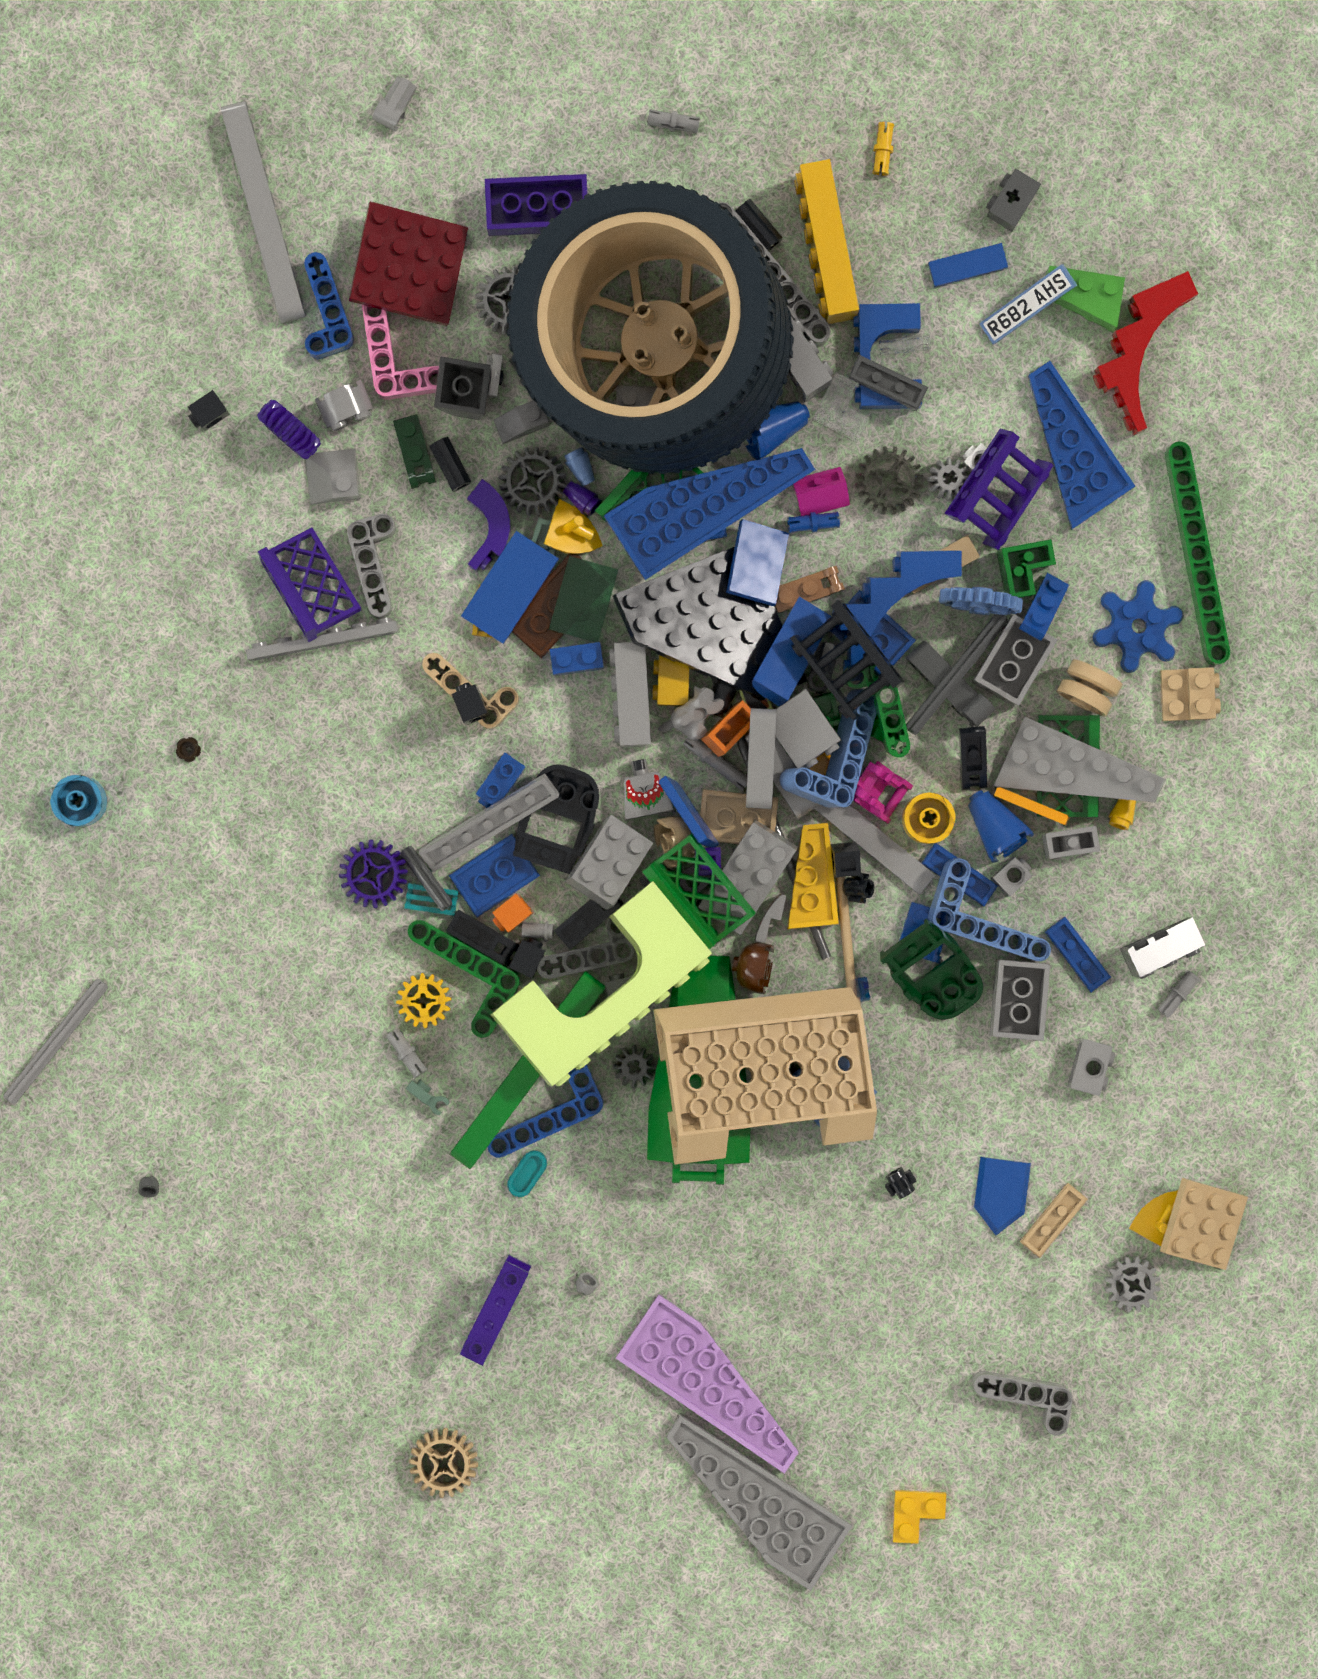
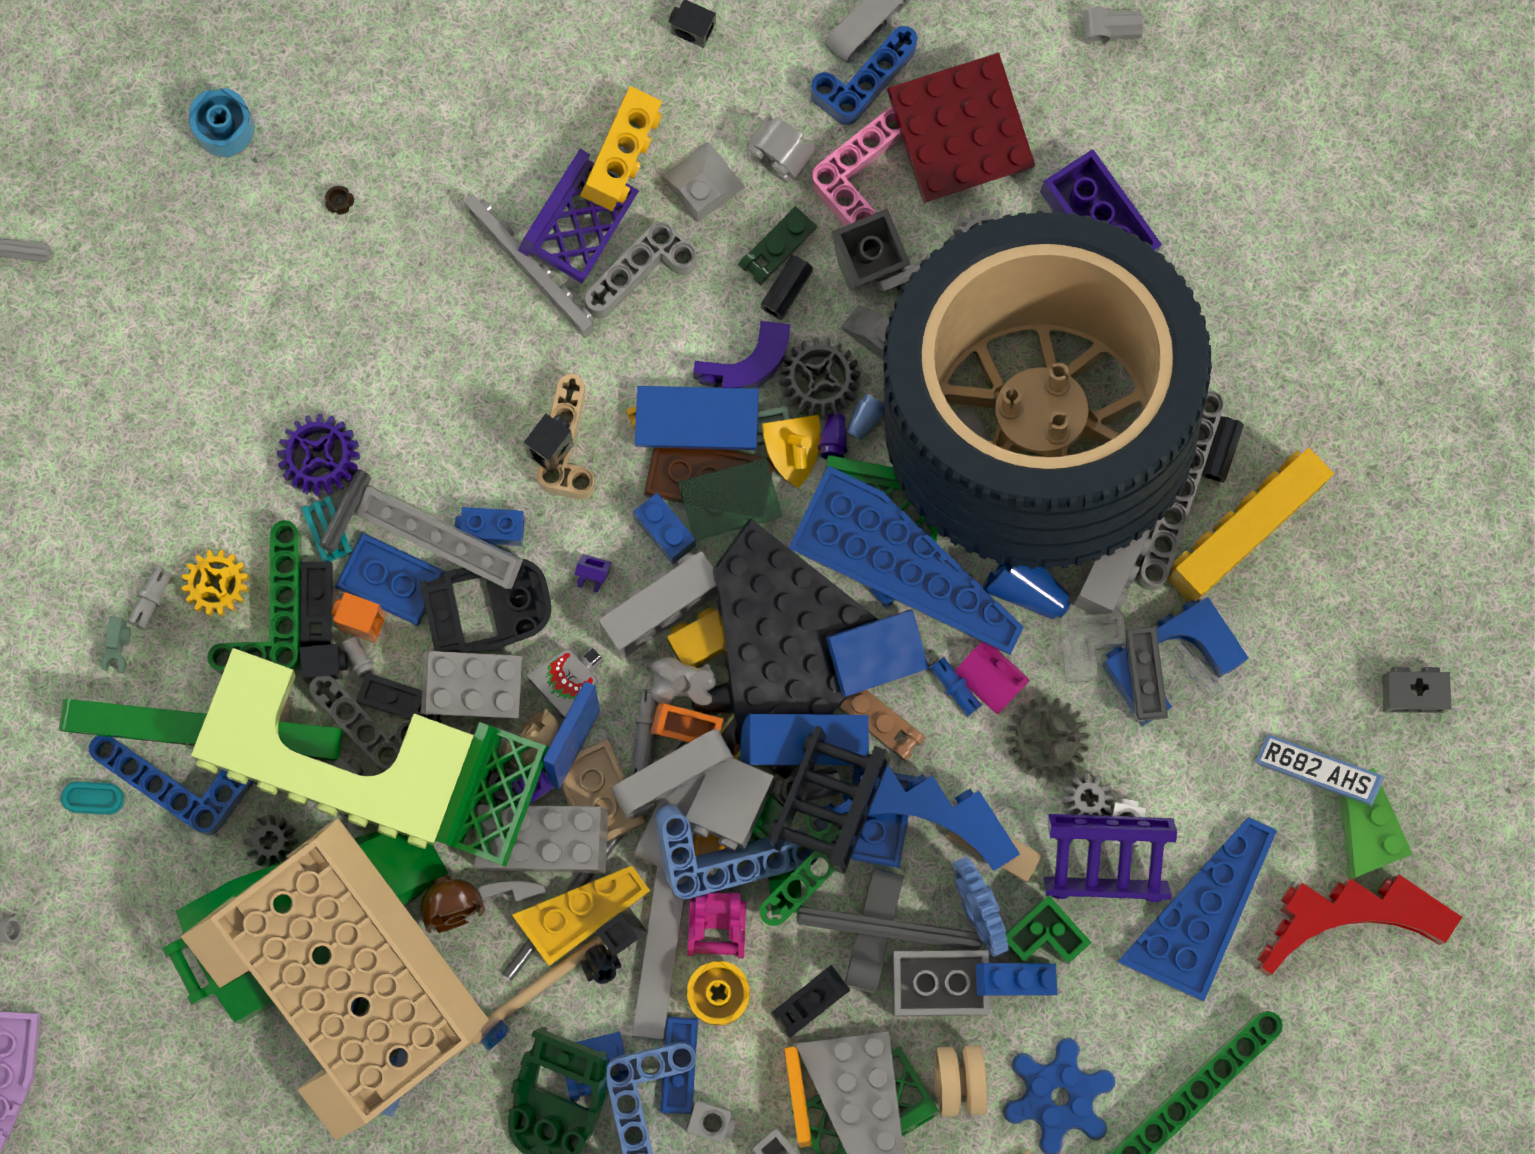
camera: 55 degrees right, 10 degrees down
(289, 429) = (722, 107): dark purple gear -> none
(293, 554) = (636, 108): none -> yellow brick
(575, 727) = (594, 569): none -> dark purple tile
(673, 121) = (1271, 303): light grey pin -> none
(883, 148) = (1381, 528): yellow pin -> none
(968, 265) = (1320, 686): blue tile -> none
(997, 825) = (754, 1073): blue cone -> none

